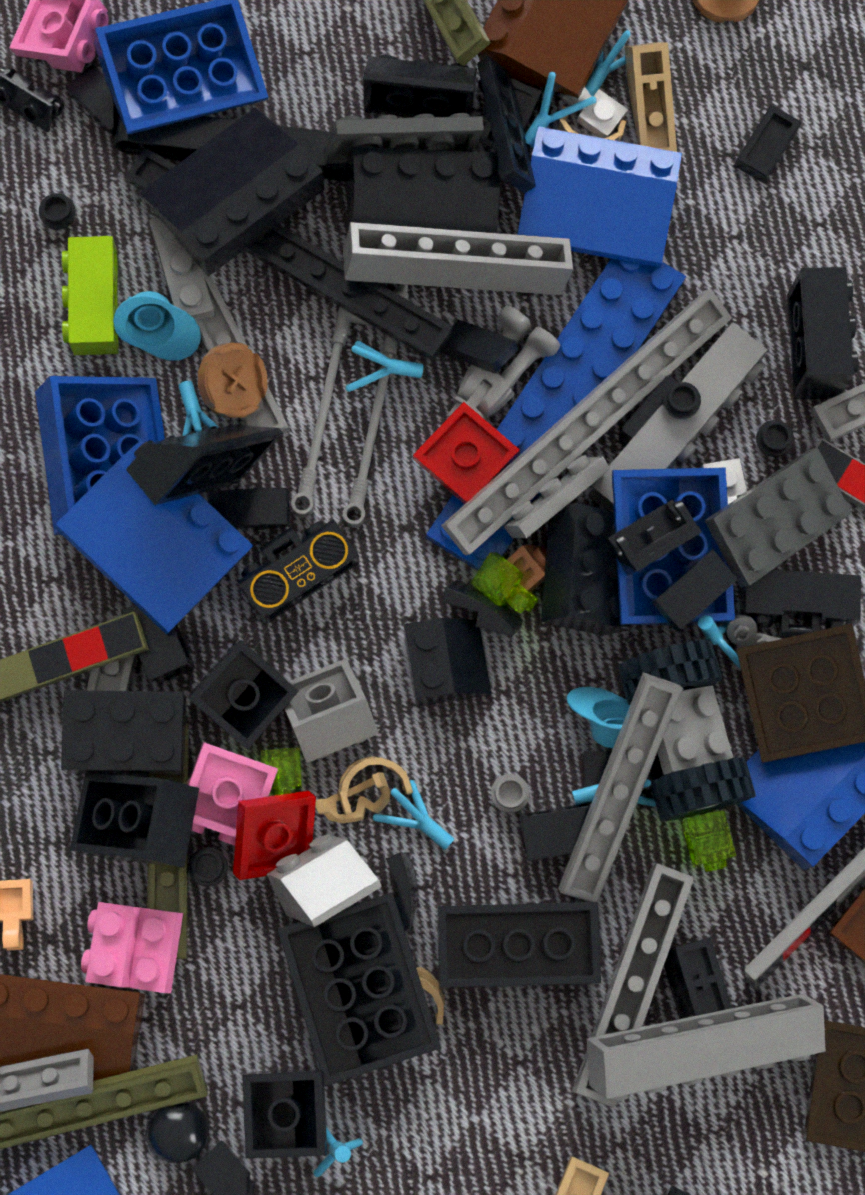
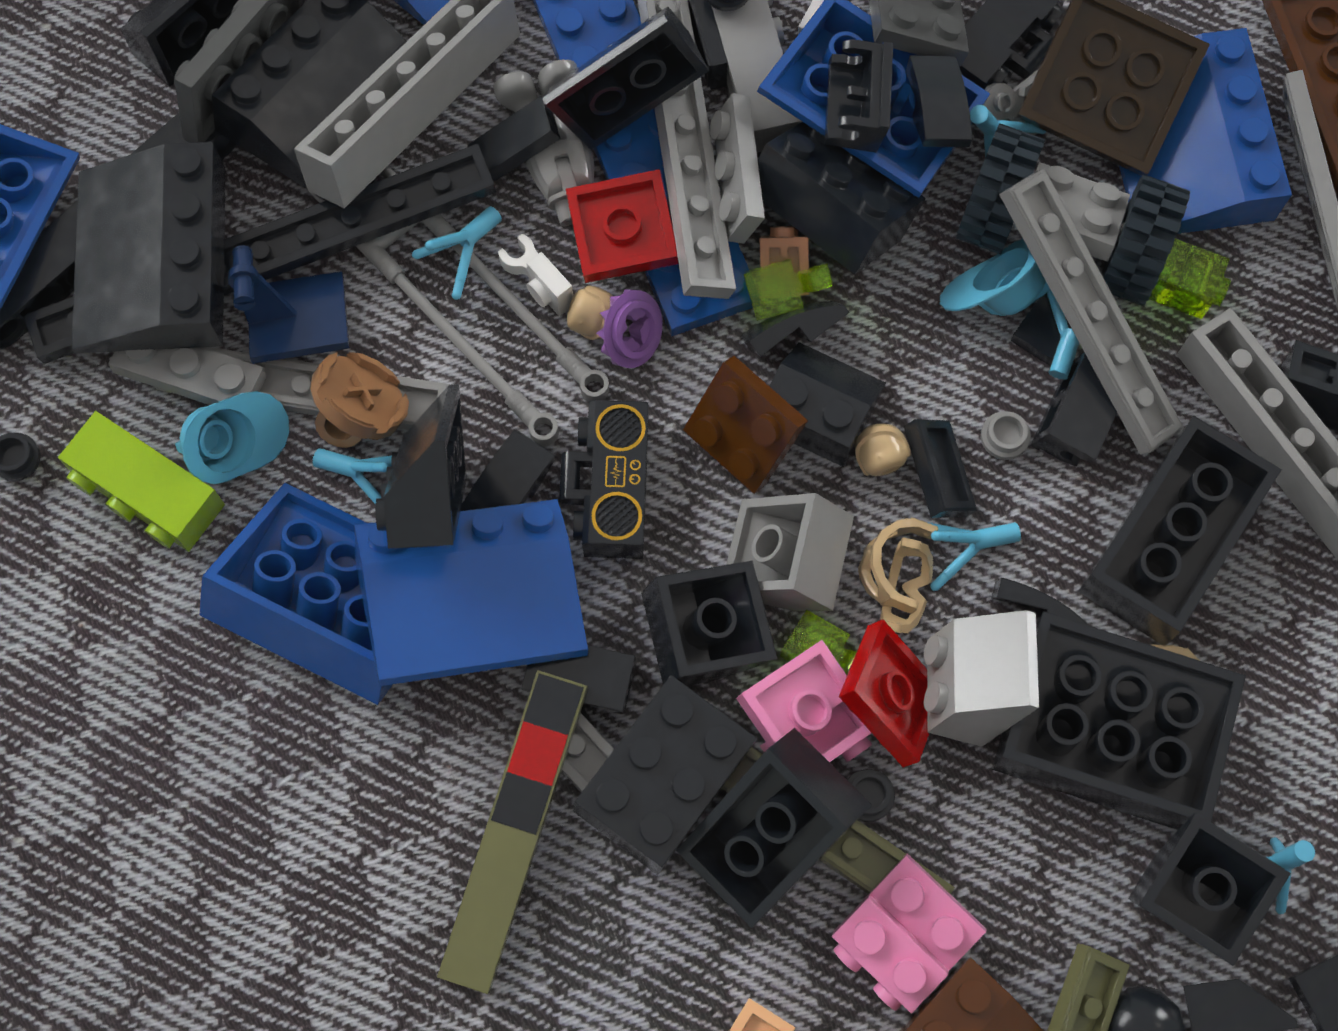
camera: 50 degrees left, 5 degrees down
(260, 298) = (290, 314): none -> dark blue plate
(387, 624) = (744, 424): none -> reddish brown plate
(397, 436) = (545, 280): none -> white plate
(399, 479) = (585, 311): none -> tan piece
(413, 519) = (644, 330): none -> medium lavender gear
(438, 720) = (881, 449): none -> tan piece
(454, 766) = (940, 468): none -> black tile
(561, 383) = (627, 79): none -> black slope

